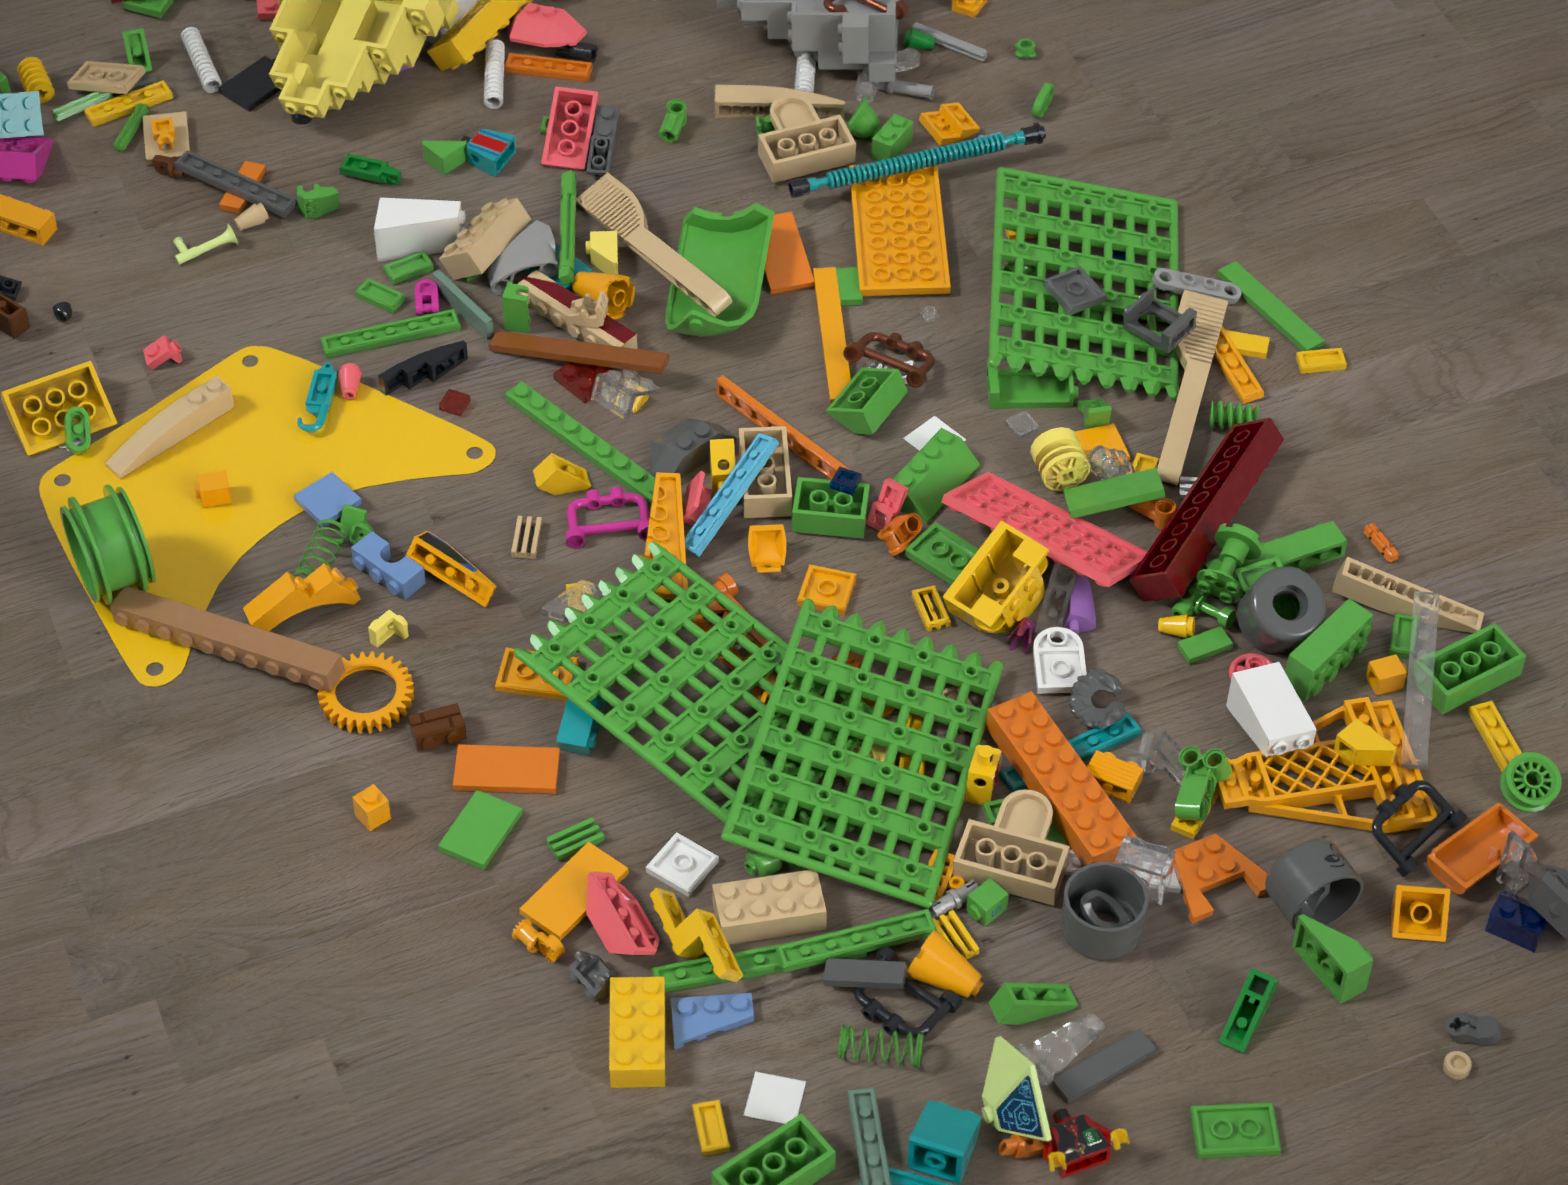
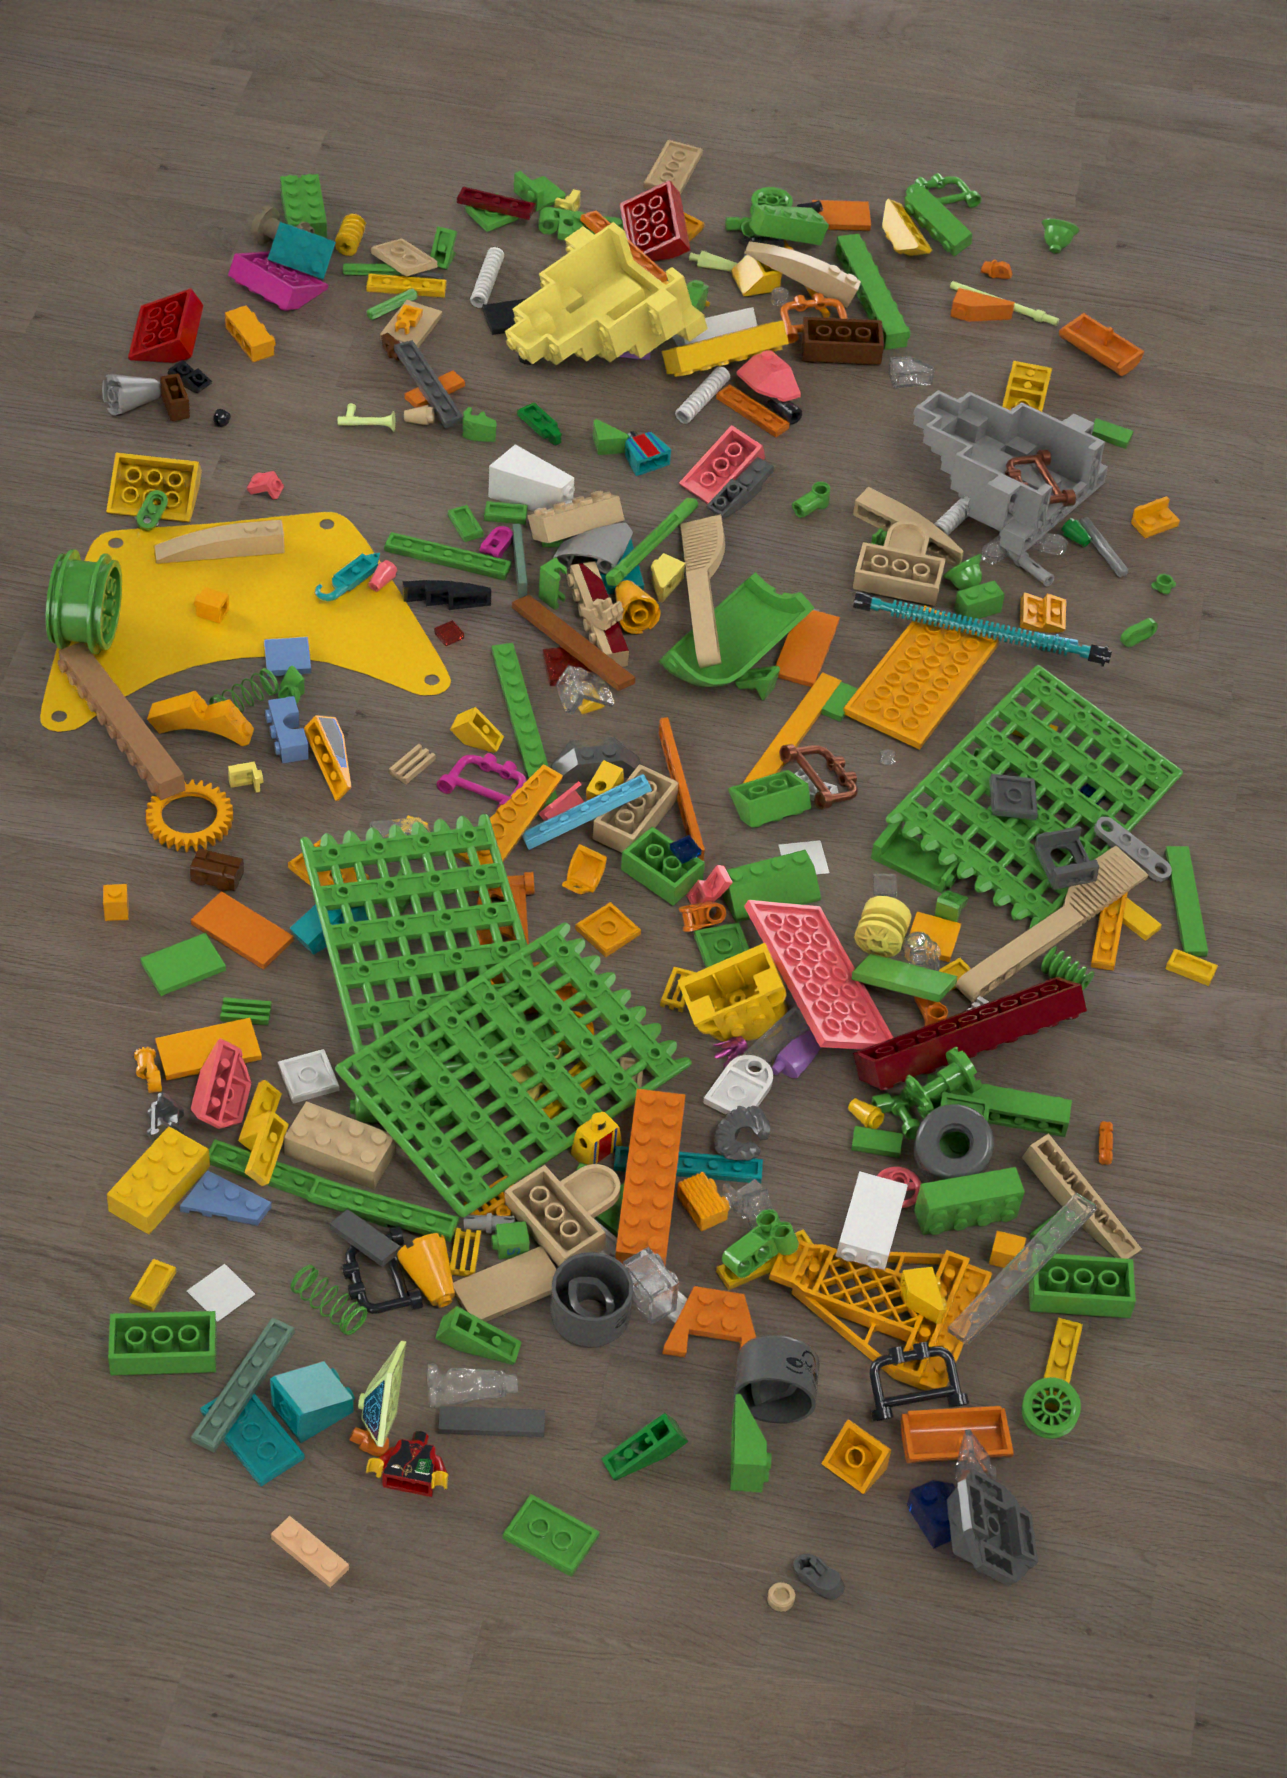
camera: 30 degrees right, 0 degrees up
(772, 300) = (762, 679): none -> bright green slope
(1016, 941) = (506, 1285): none -> tan tile

